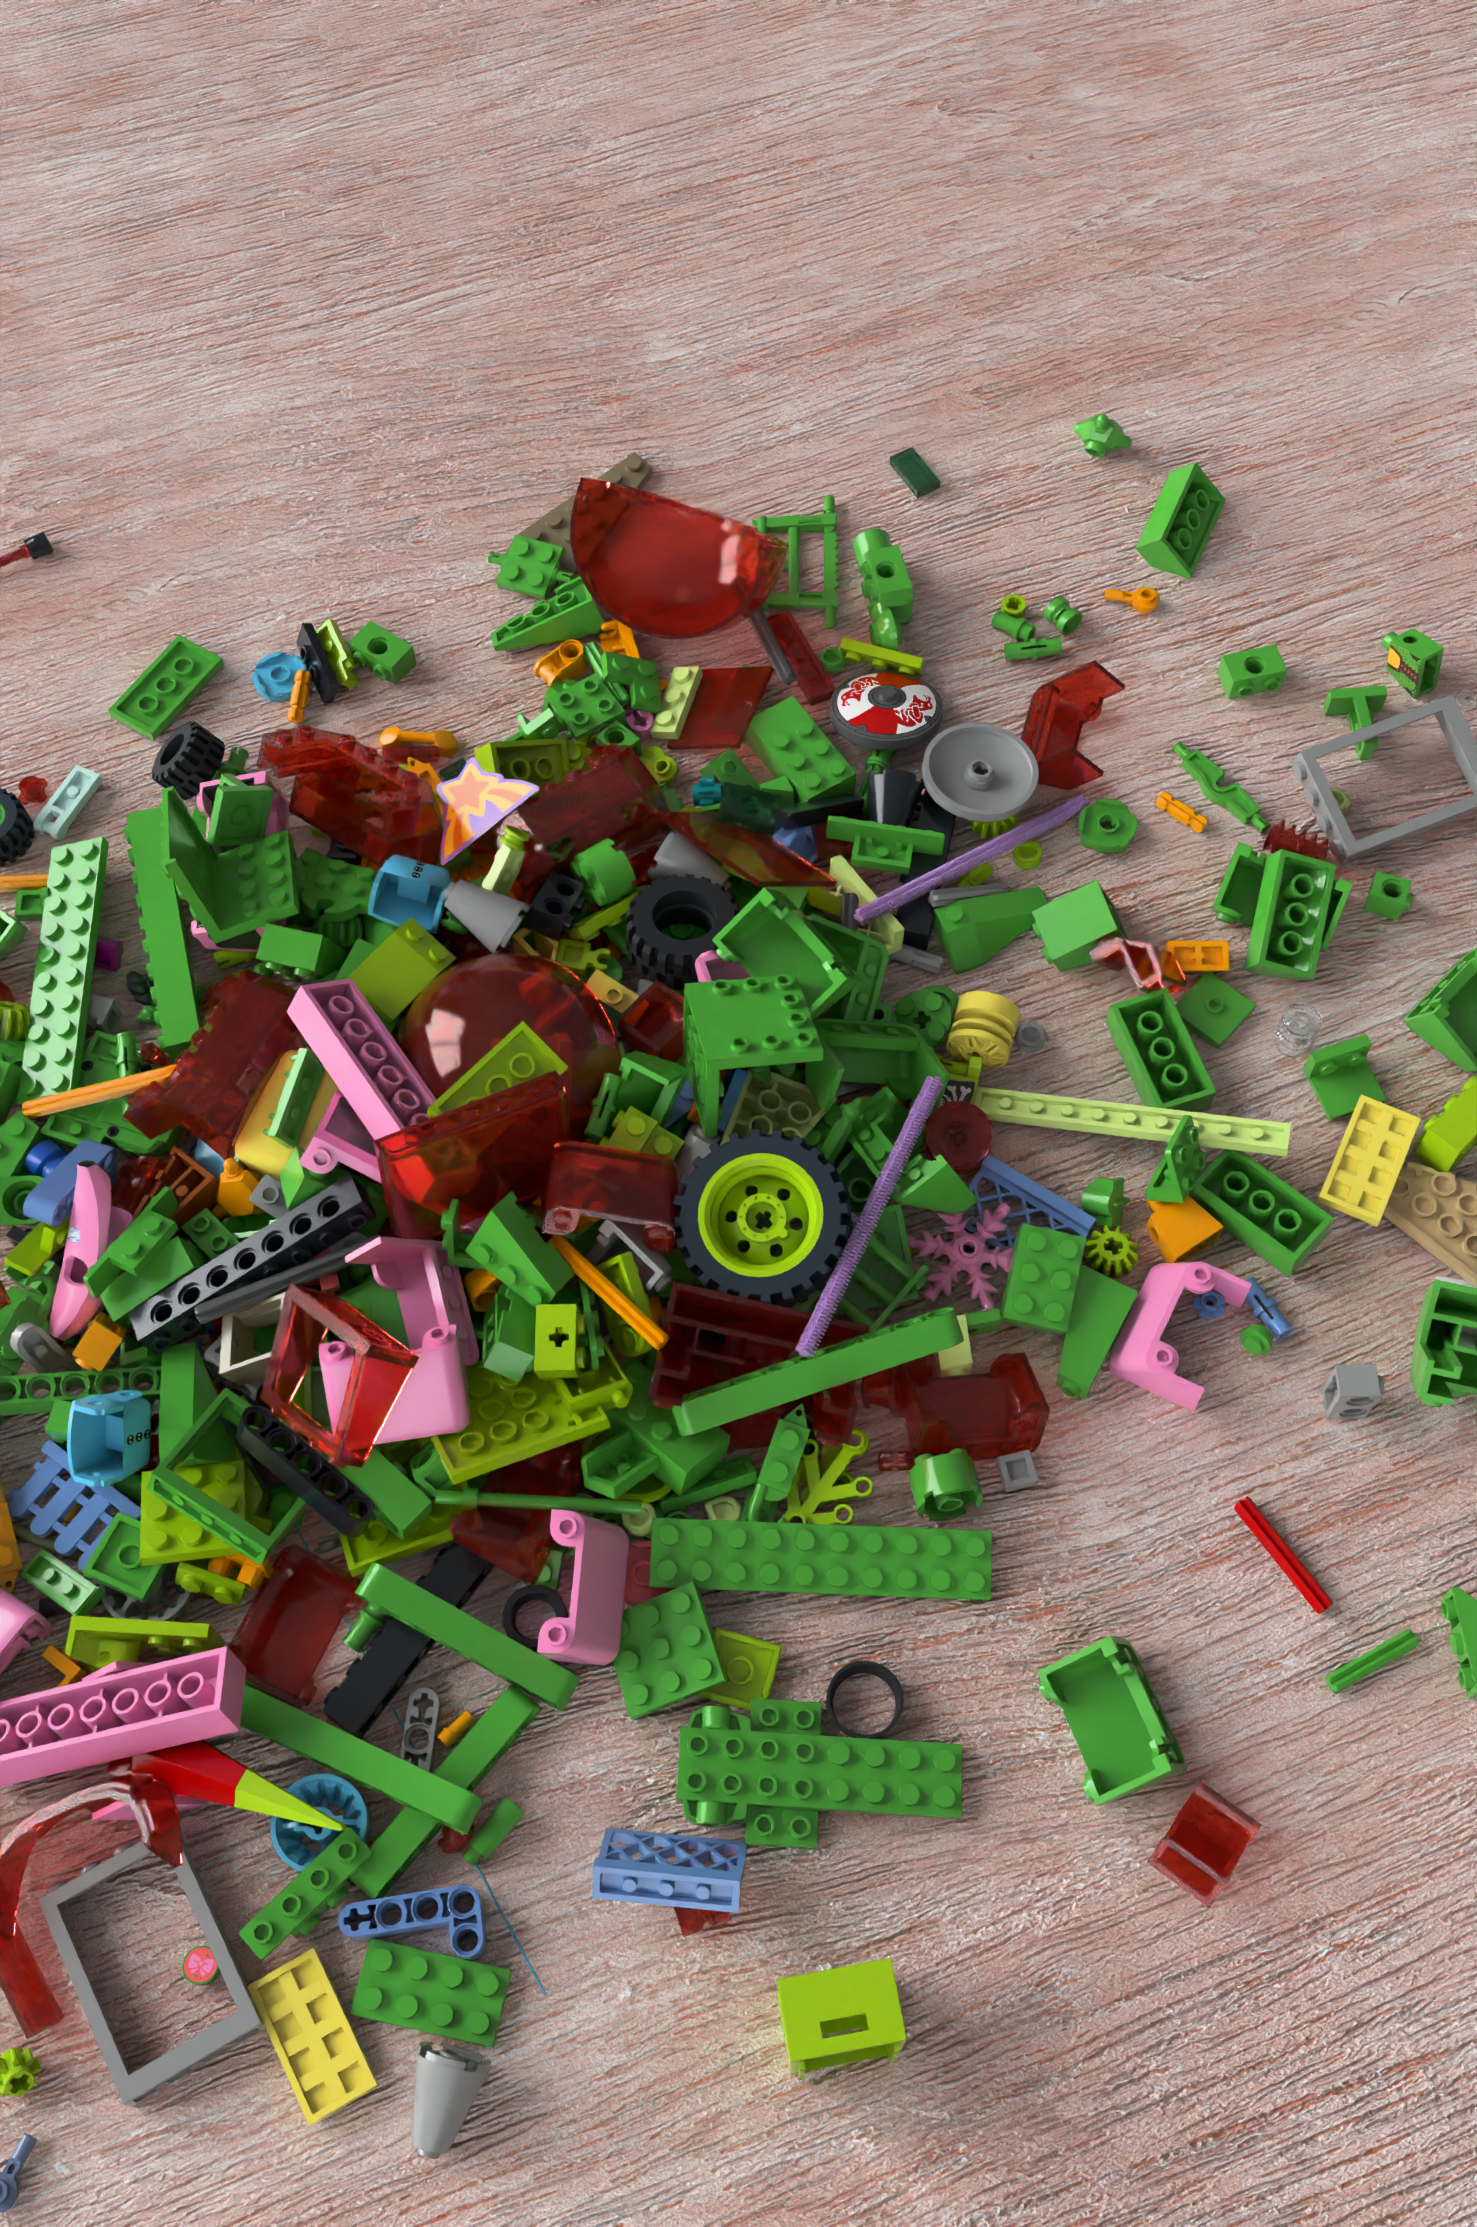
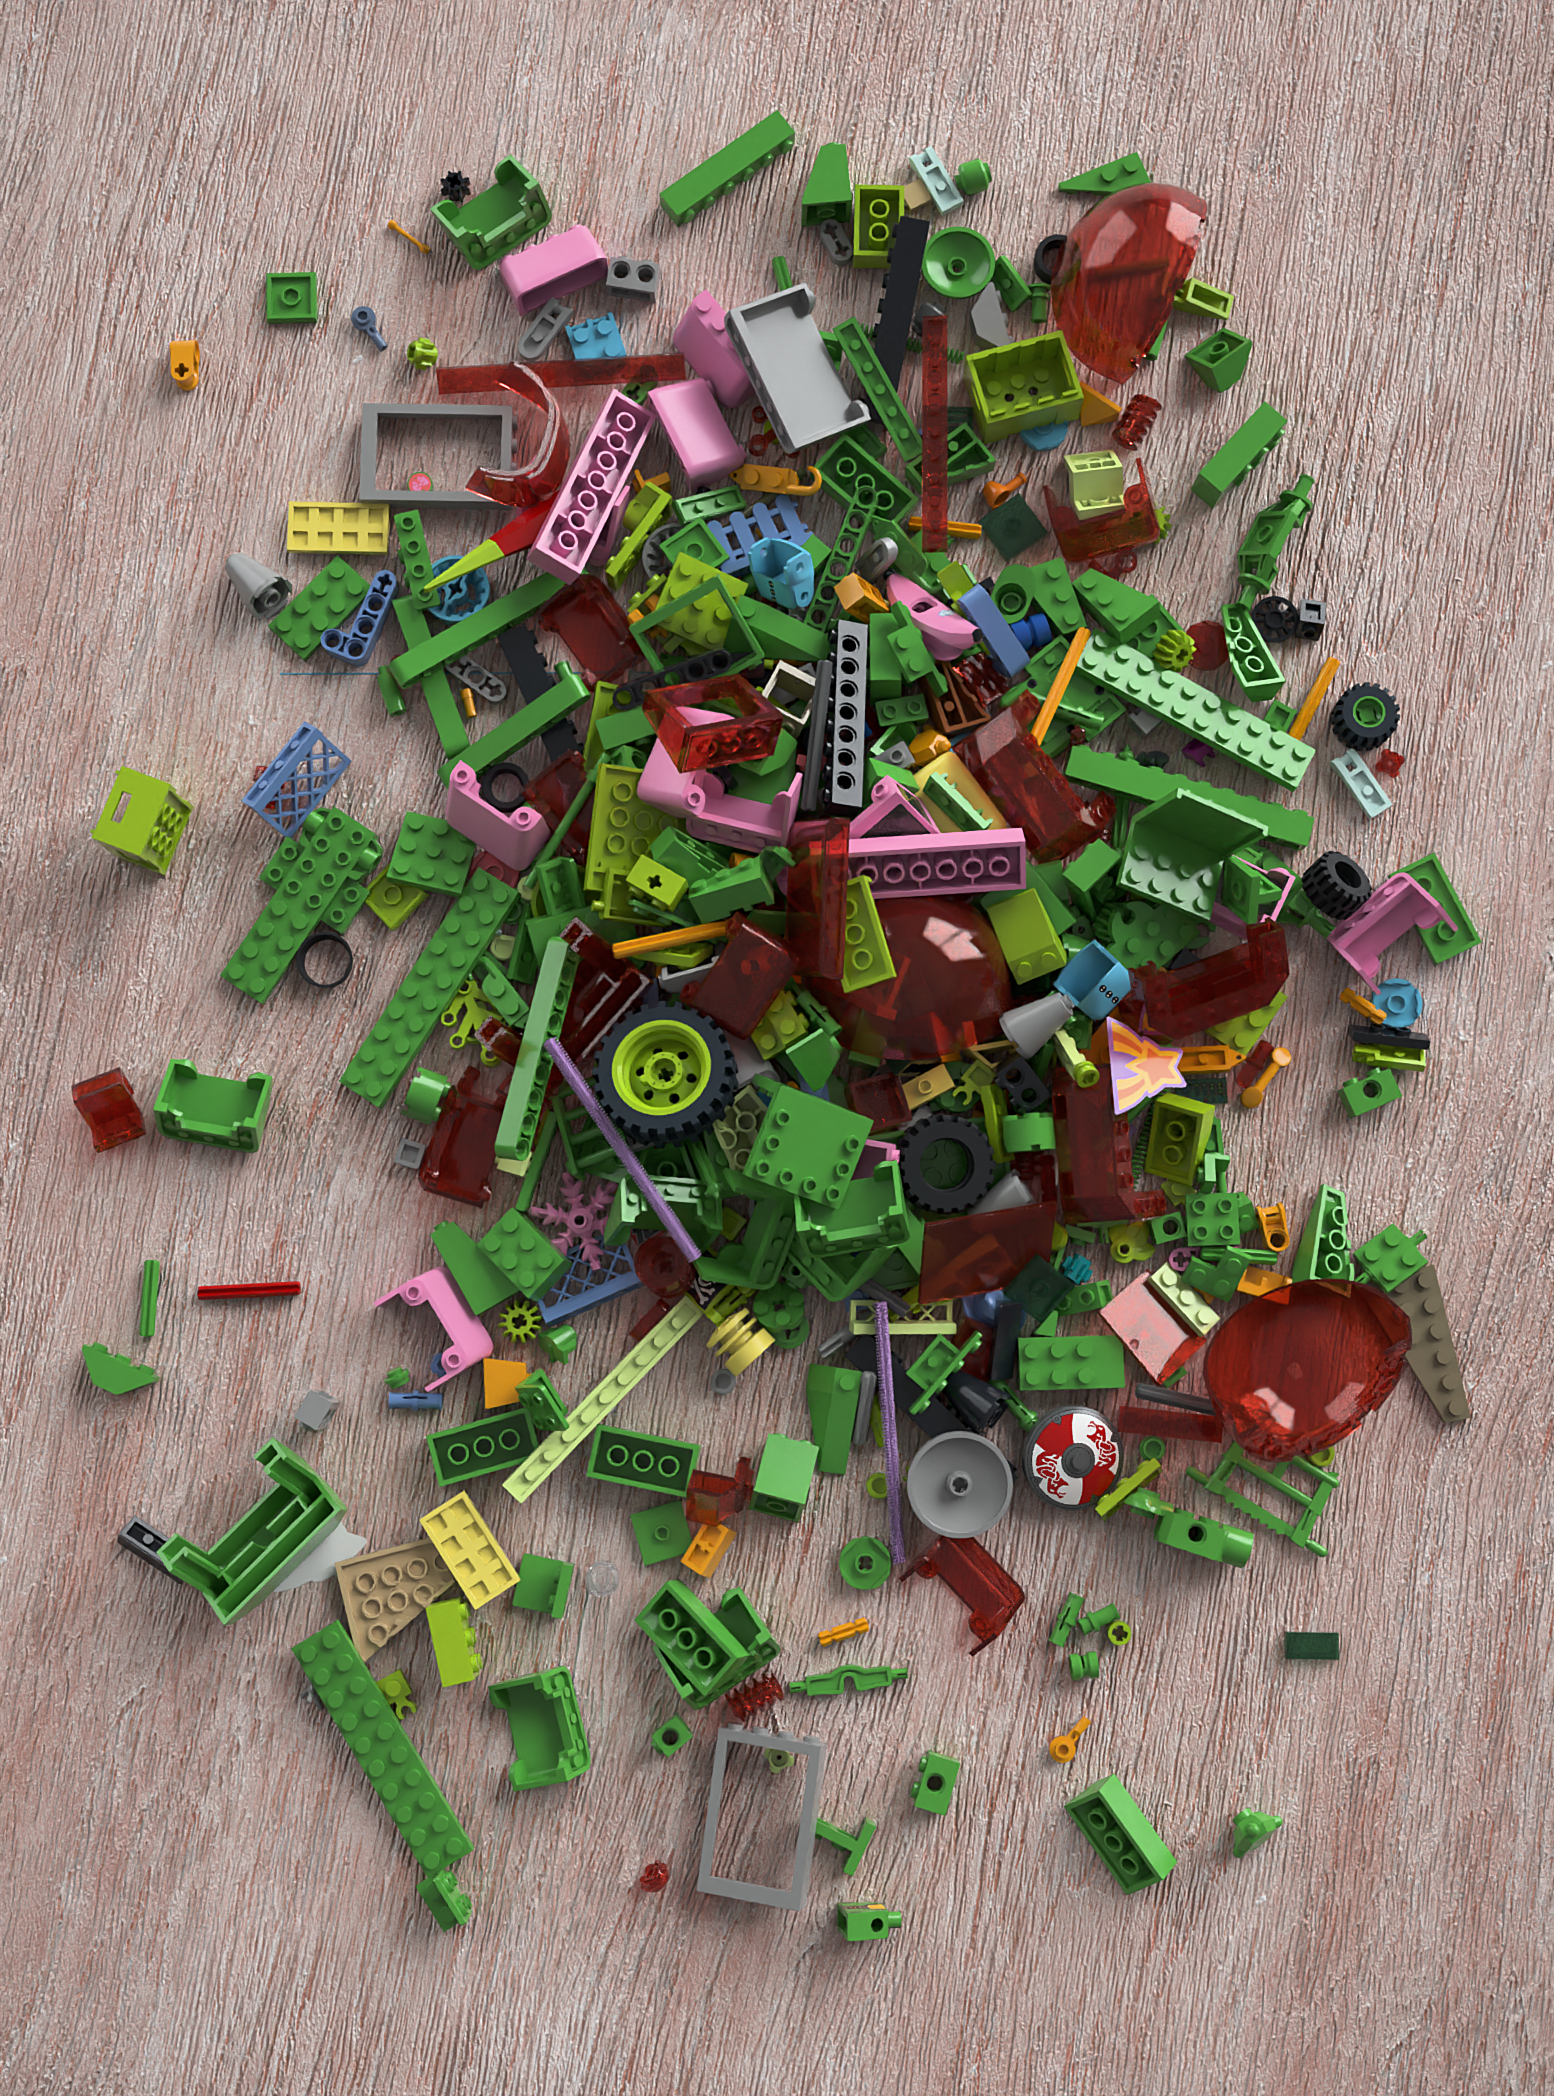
camera: 115 degrees right, 20 degrees up
(173, 704) = (1383, 920): none -> bright pink windscreen
(1020, 1132) = (649, 1320): none -> clear red beam

